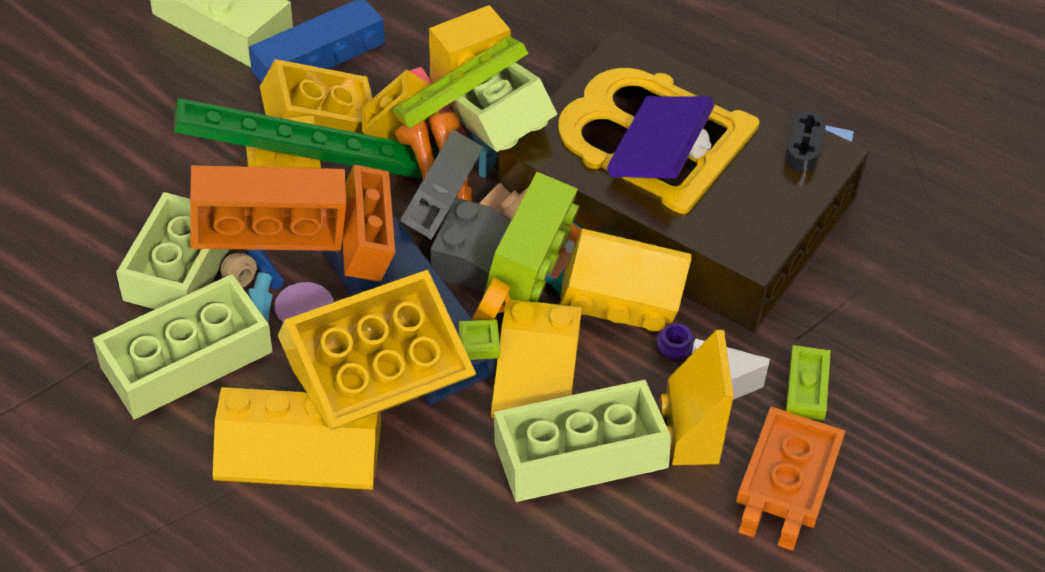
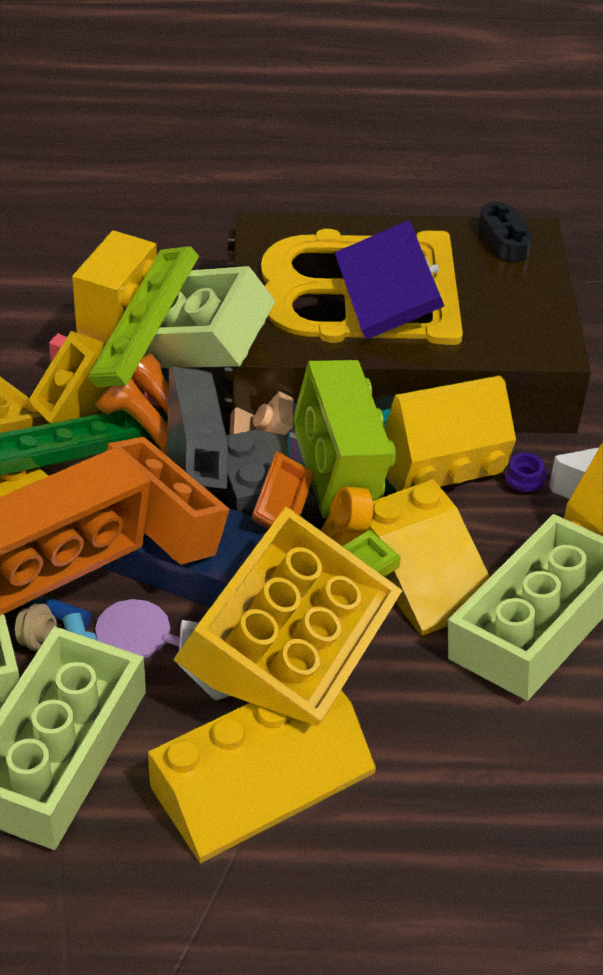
camera: 35 degrees left, 5 degrees down
(459, 262) = (284, 486): none -> orange tile

